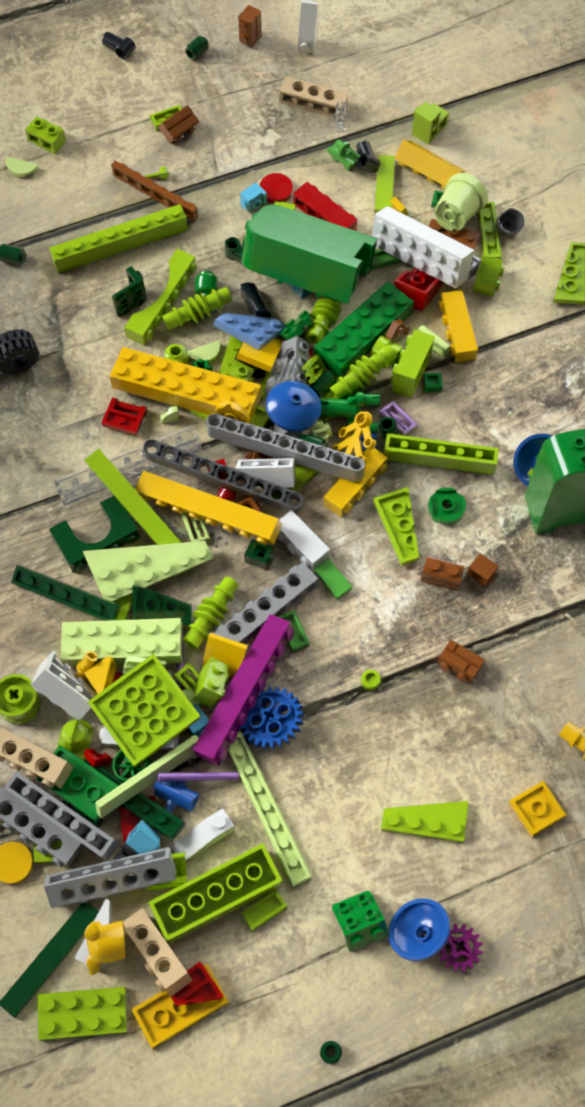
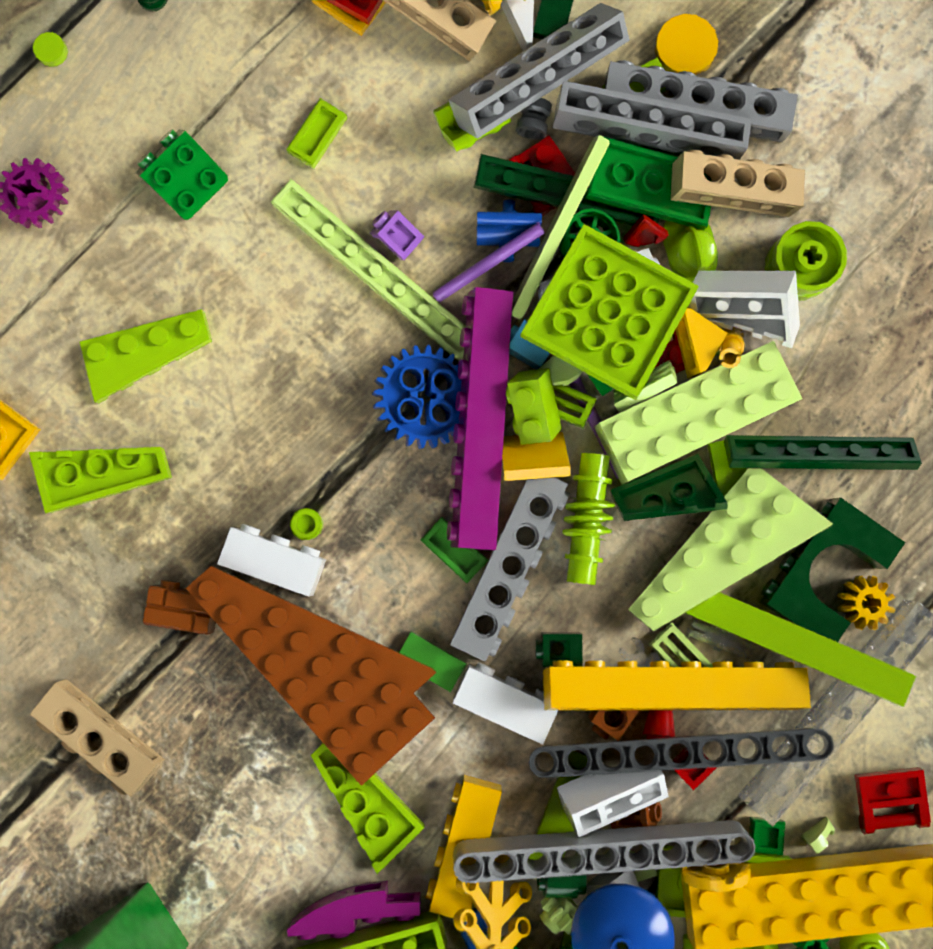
camera: 160 degrees right, 20 degrees up
(77, 511) = (878, 602): none -> yellow gear
(143, 838) = (521, 140): medium azure brick -> none
(199, 424) = (767, 838): none -> green tile
(204, 835) = (441, 192): white slope -> none
(215, 893) = (387, 115): lime brick -> none
(244, 823) = (396, 233): none -> medium lavender bracket
(387, 585) = (336, 680): none -> dark orange wing
(398, 665) = (272, 560): none -> white brick
(412, 1045) = (50, 49): none -> lime tile
(414, 921) = (102, 170): blue dish -> none
(433, 478) = (340, 910): none -> magenta slope
(442, 573) = (263, 743): dark orange brick -> none
(443, 515) = (296, 885): green plate -> none
(483, 570) = (202, 777): dark orange brick -> none
(485, 758) = (93, 474): none -> lime wing
(545, 640) = (115, 737): none -> tan brick

